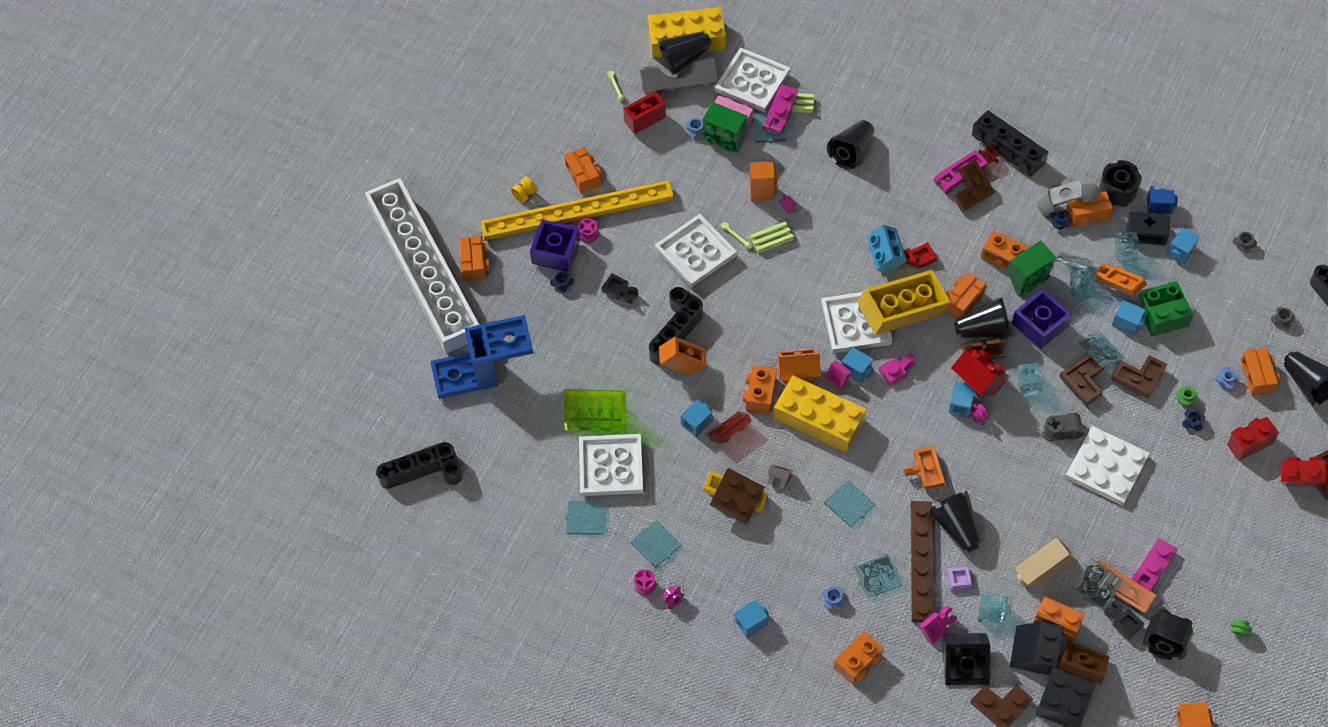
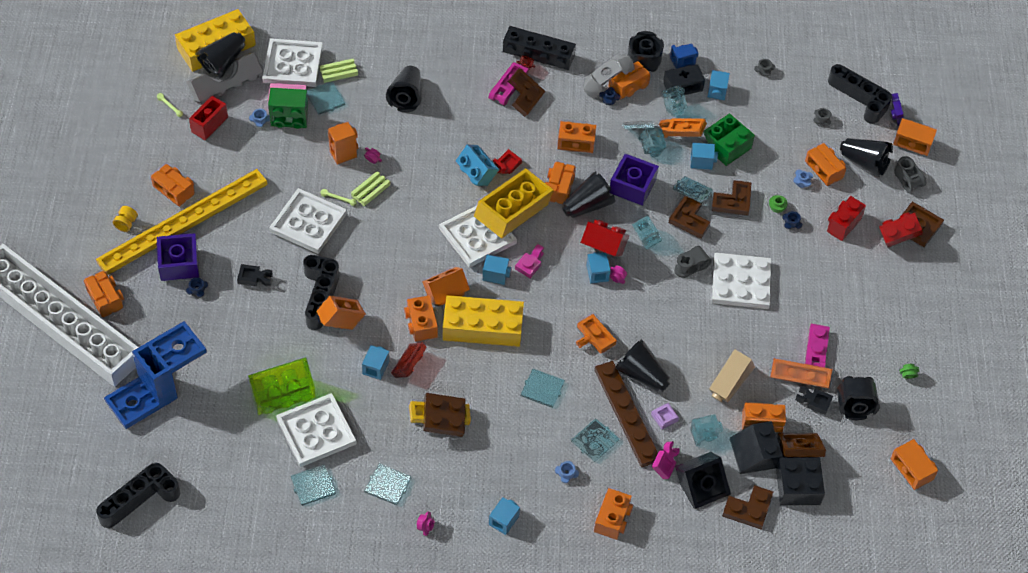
camera: 30 degrees left, 5 degrees down
(590, 226) = (200, 231): dark pink wheel -> none
(643, 577) = (394, 515): dark pink wheel -> none
(779, 472) = (468, 383): tile -> none
(780, 109) = (330, 78): dark pink plate -> none
(838, 374) = (483, 283): dark pink plate -> none
(993, 347) = (604, 215): reddish brown hinge -> none
(1031, 268) = (607, 140): green slope -> none
(1097, 583) = (780, 377): piece -> none

